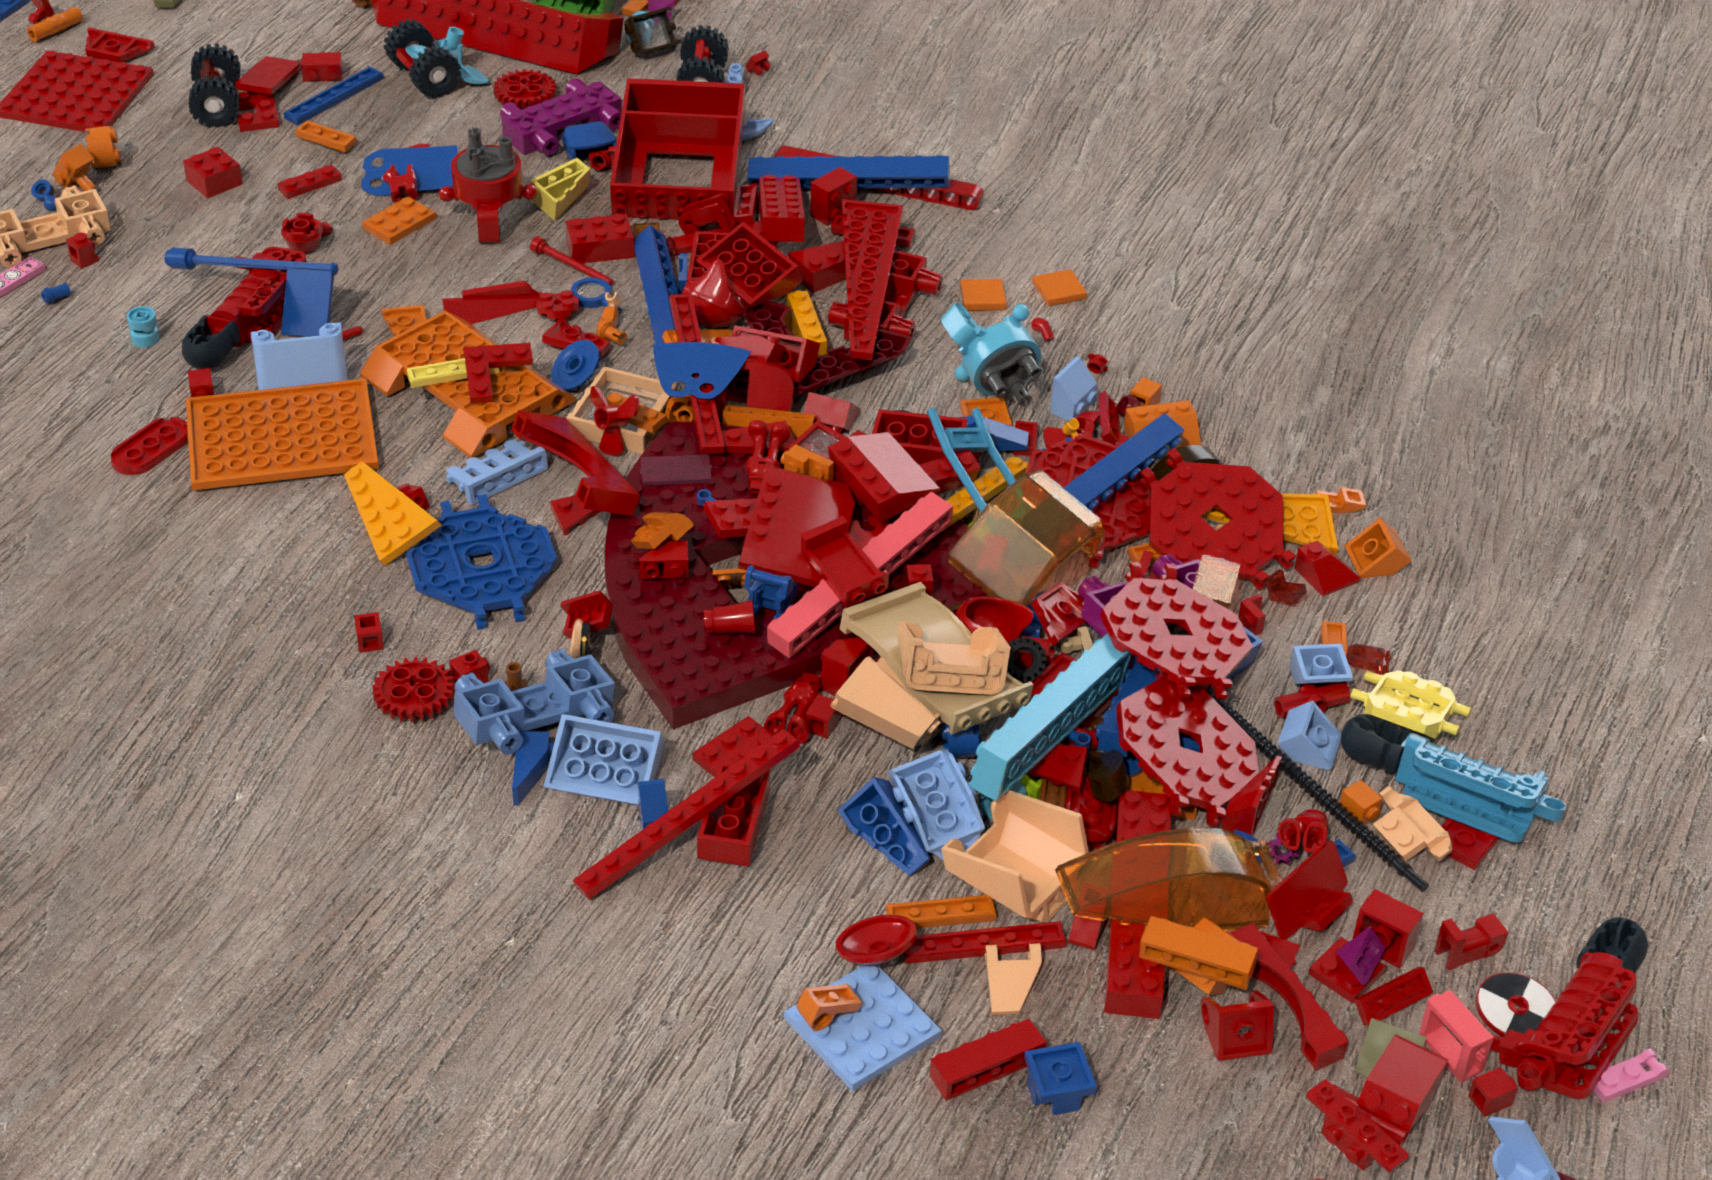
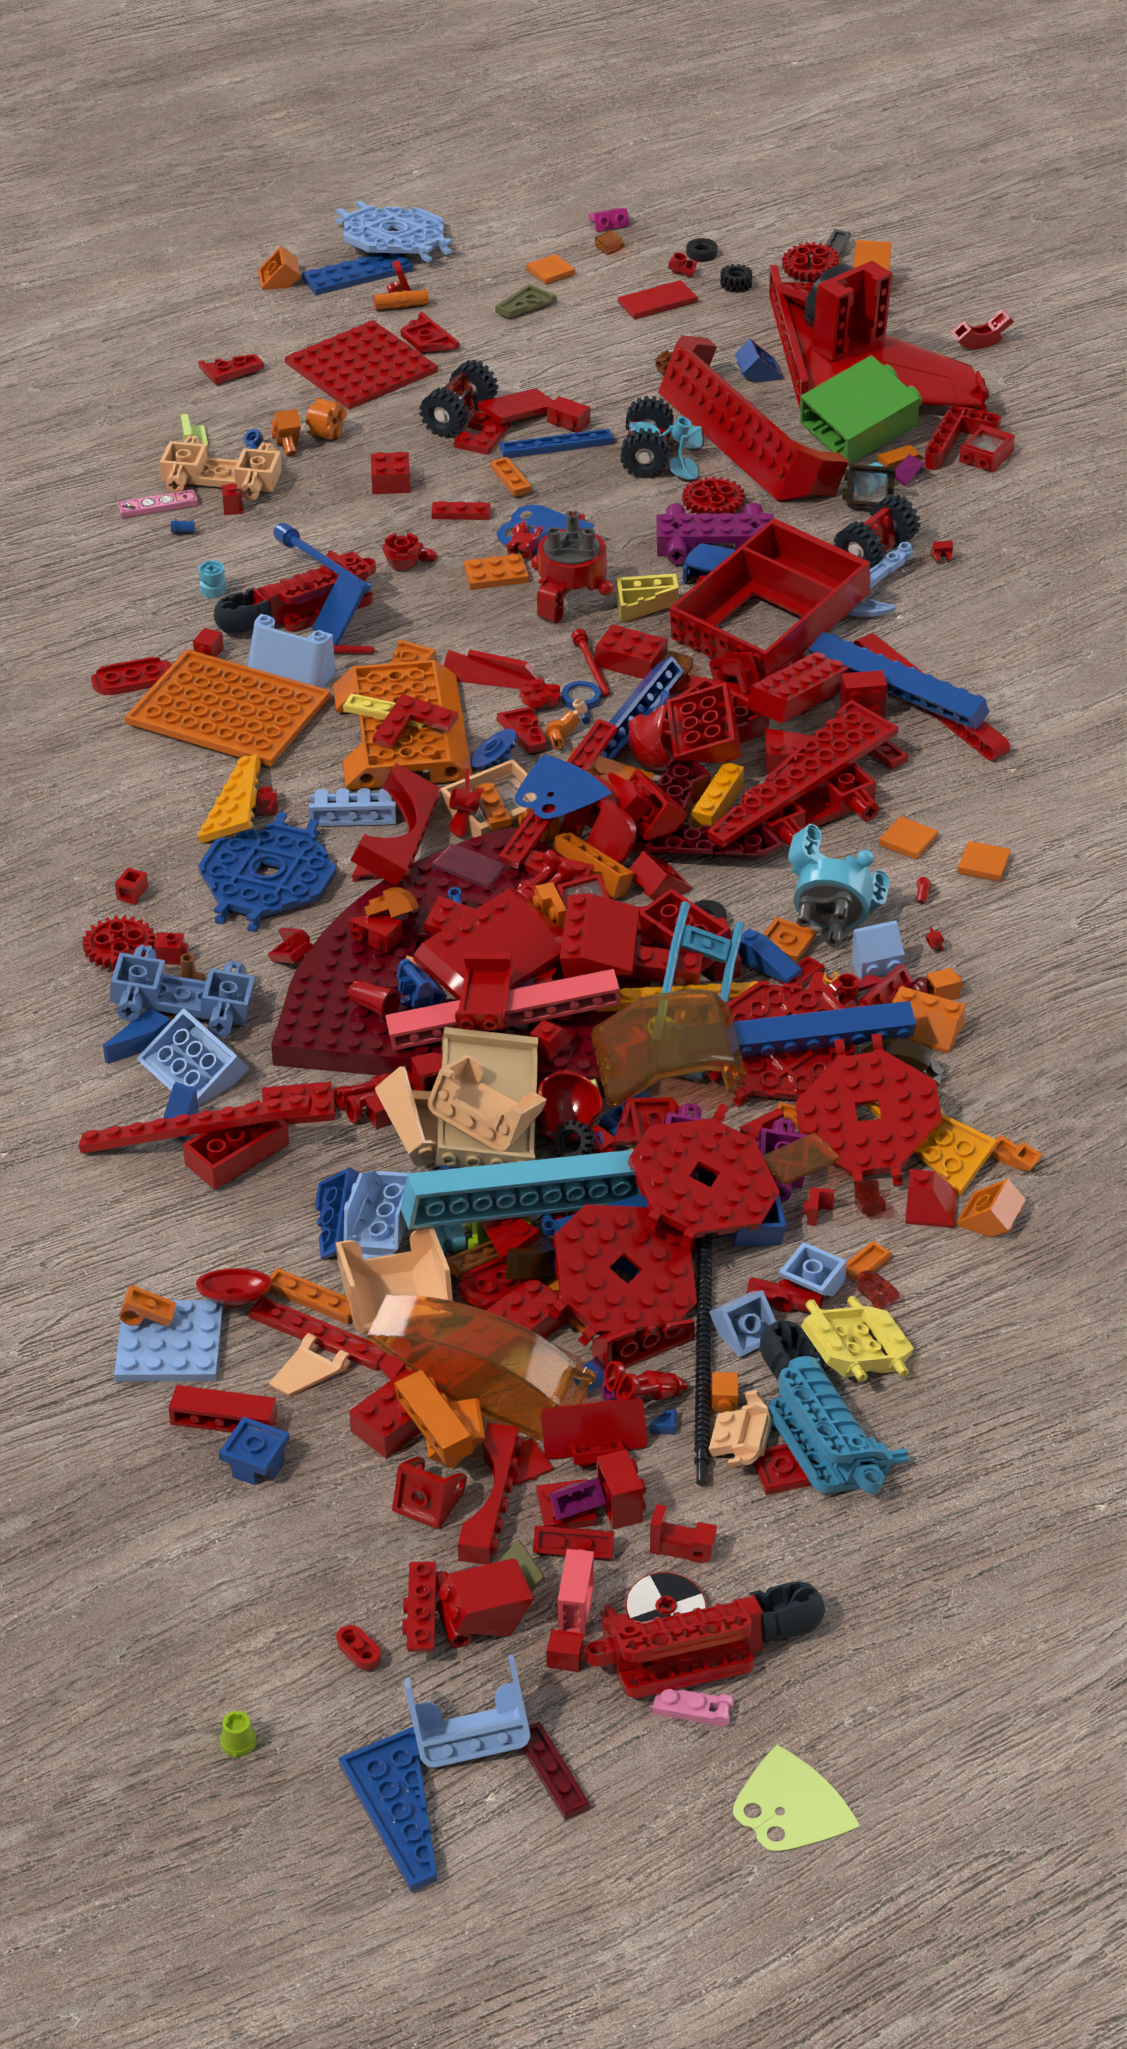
camera: 40 degrees right, 0 degrees up
(580, 639) = (265, 965): piece -> none

